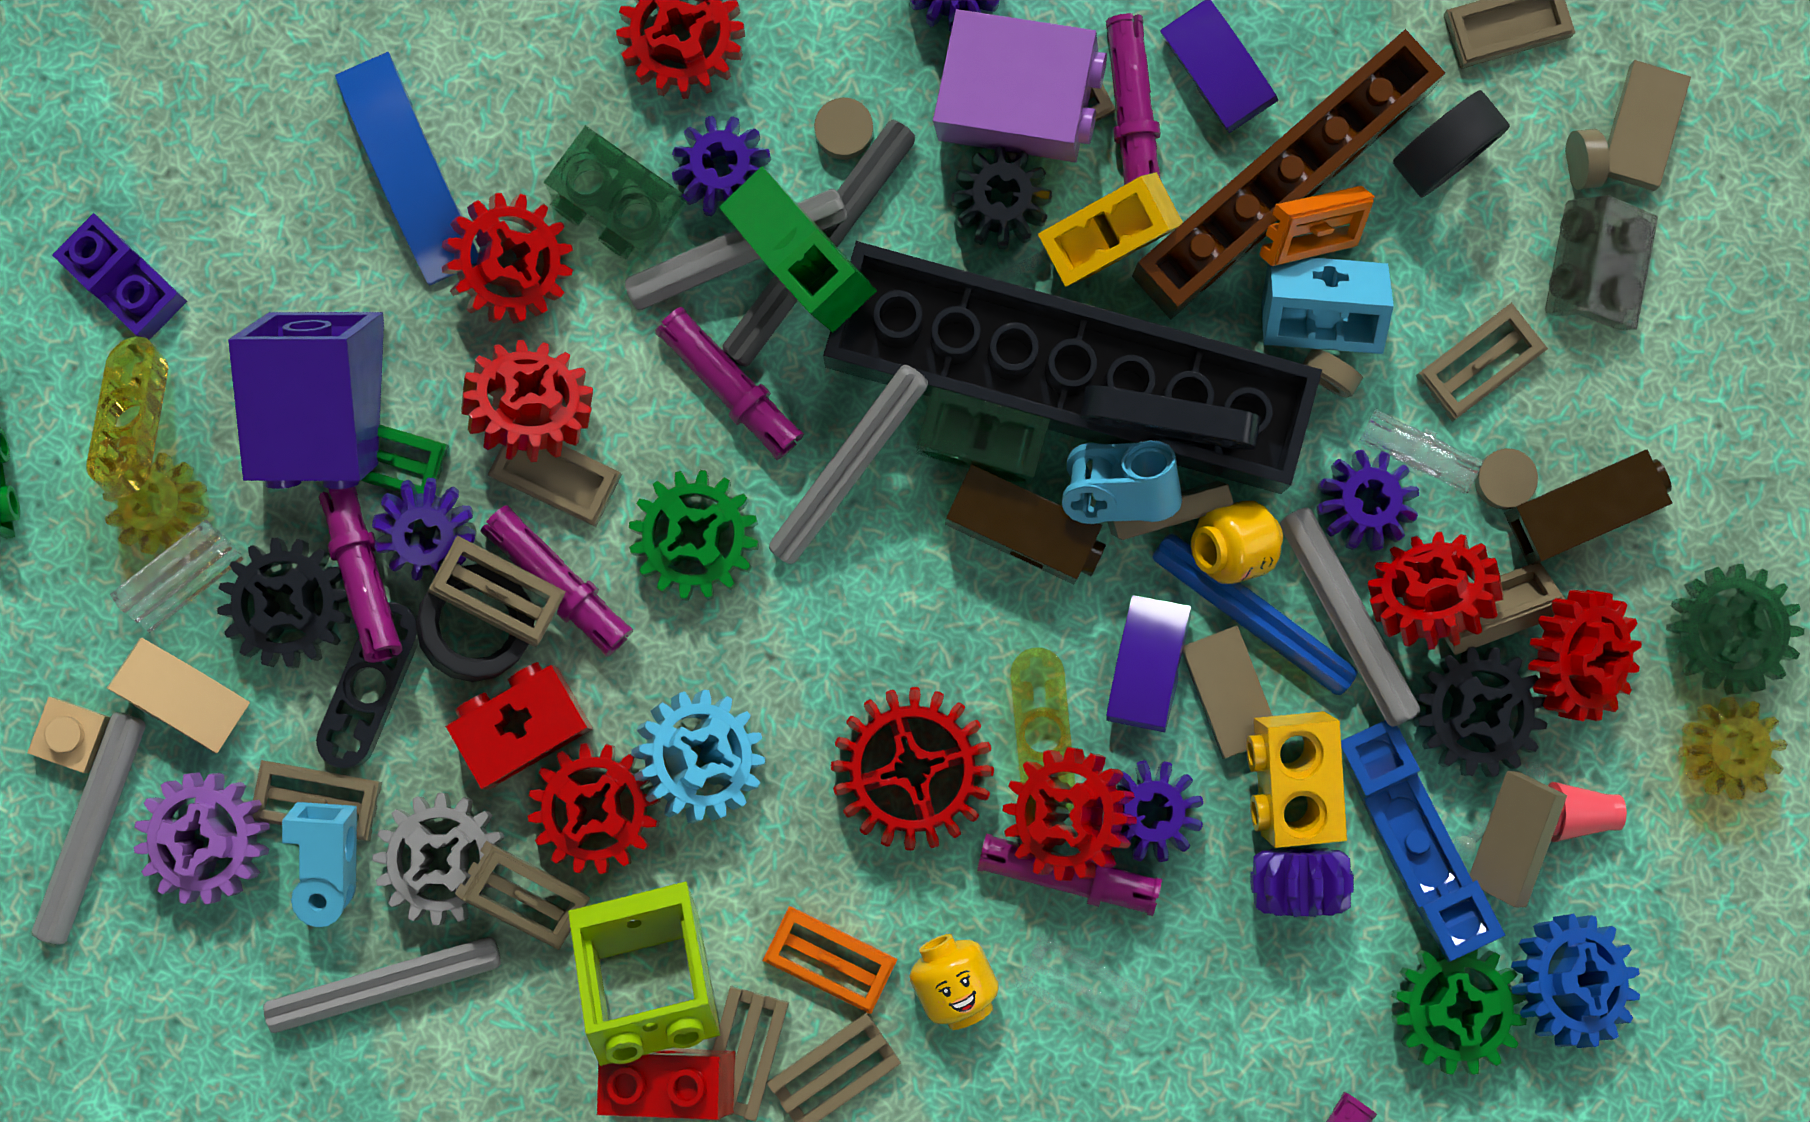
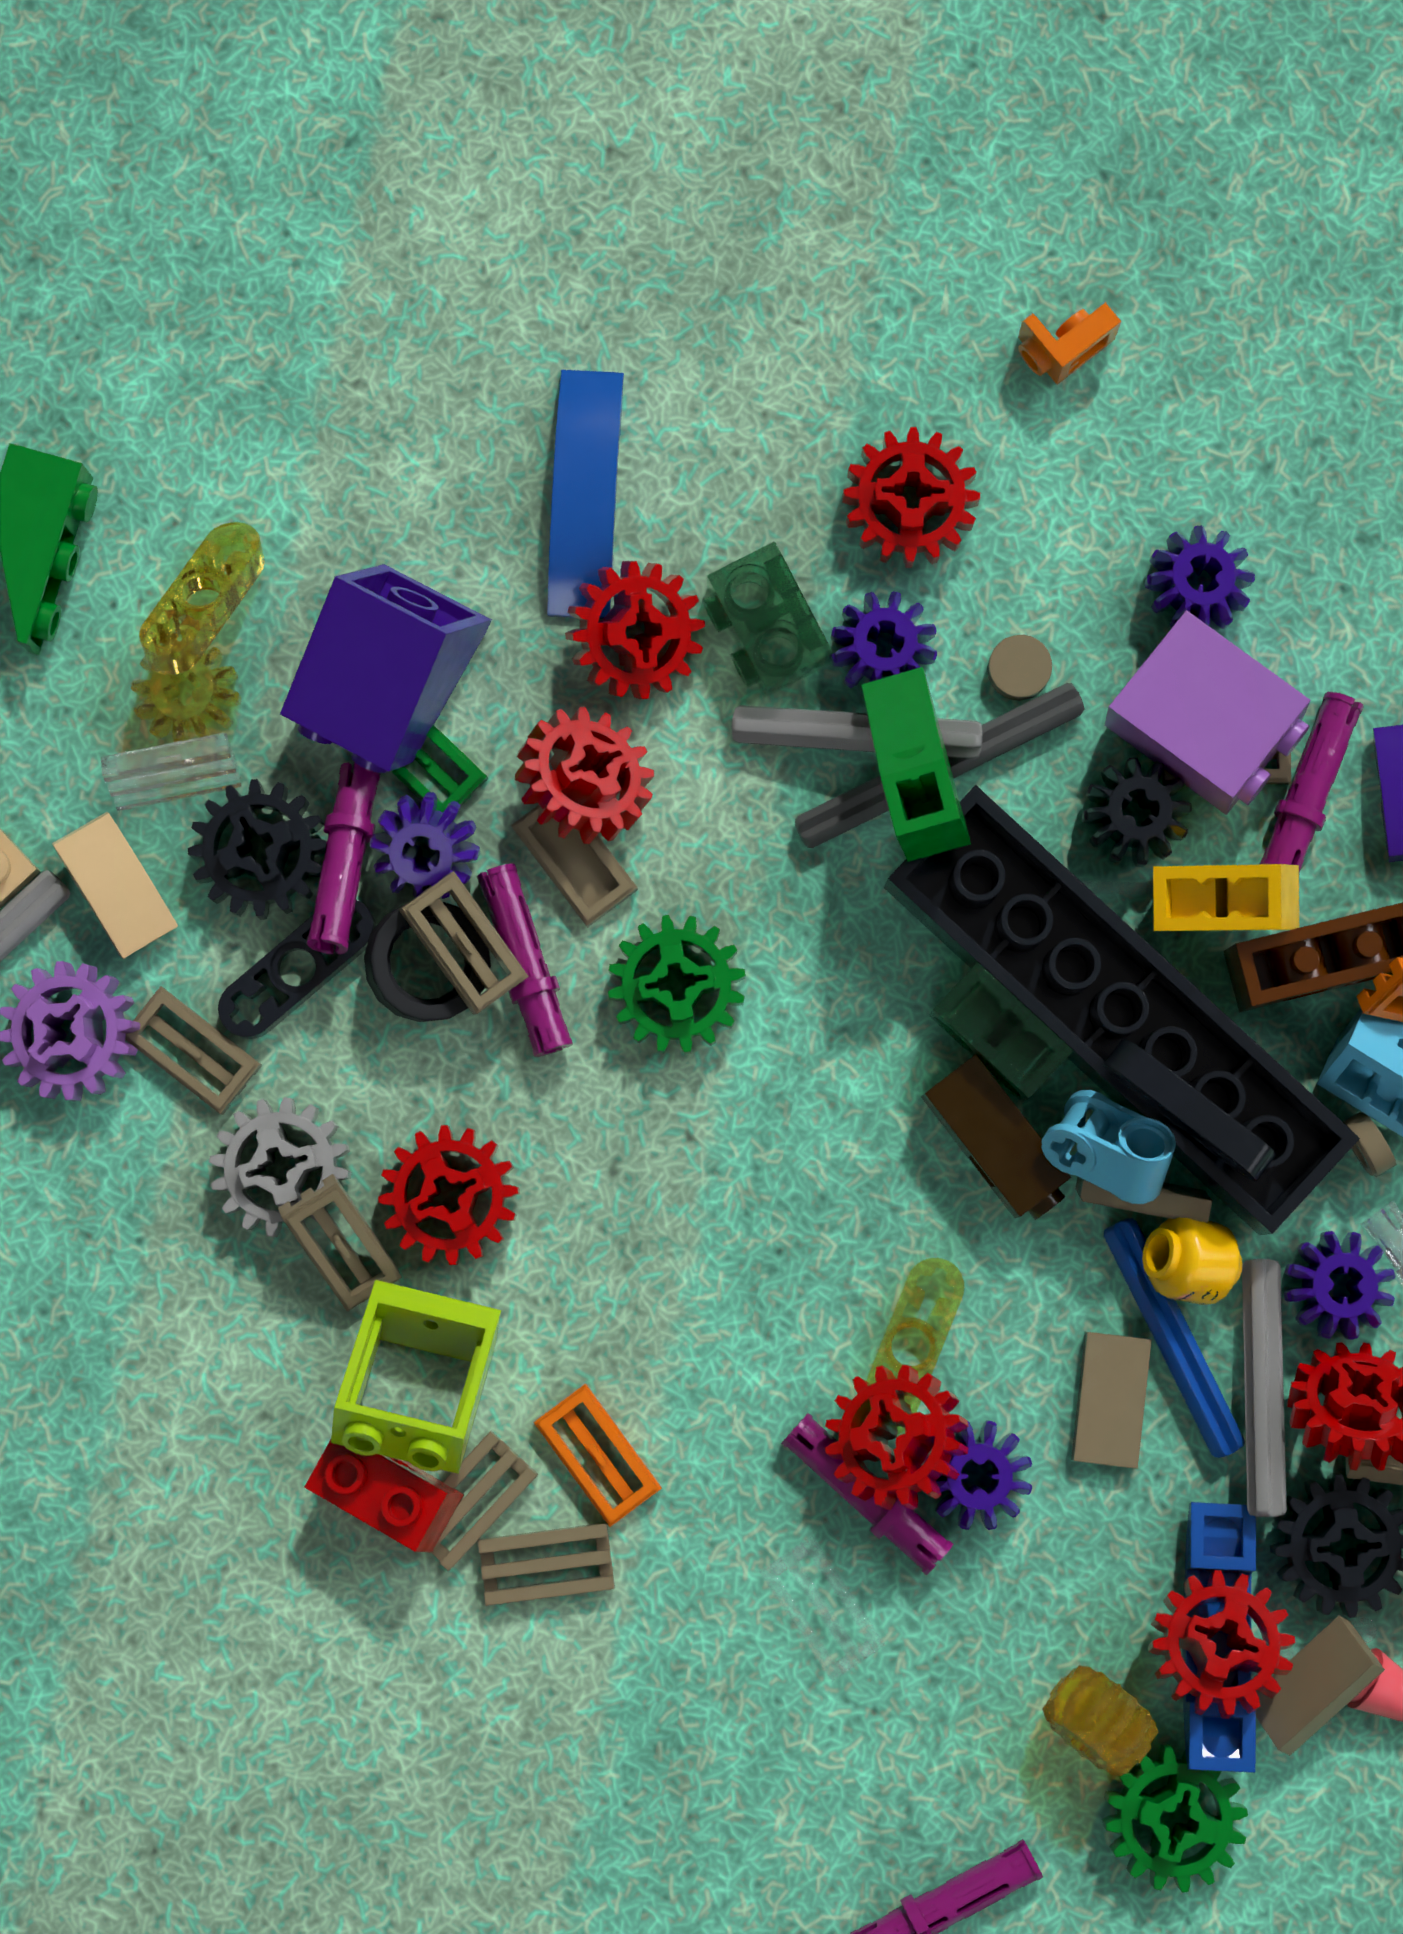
camera: 30 degrees right, 0 degrees up
(119, 277) = (260, 460): dark purple slope -> none
(325, 859) = (173, 1114): medium azure leg -> none
(381, 984) = (165, 1257): light grey axle -> none
(501, 755) = (384, 1098): red brick -> none
(712, 736) = (594, 1214): medium azure gear -> none
(744, 399) = (782, 848): magenta pin -> none
(848, 464) = (858, 993): light grey axle -> none
(898, 720) = (824, 1325): red gear -> none
(954, 982) = (704, 1538): yellow head -> none
(1148, 663) = (1047, 1332): dark purple slope -> none
(1302, 882) = (1086, 1618): dark purple gear -> none
(1313, 775) = (1149, 1521): yellow brick -> none
(1357, 960) = (1100, 1720): none -> clear yellow gear
(1399, 849) = (1195, 1635): none -> red gear
(1575, 981) = (1300, 1851): blue gear -> none

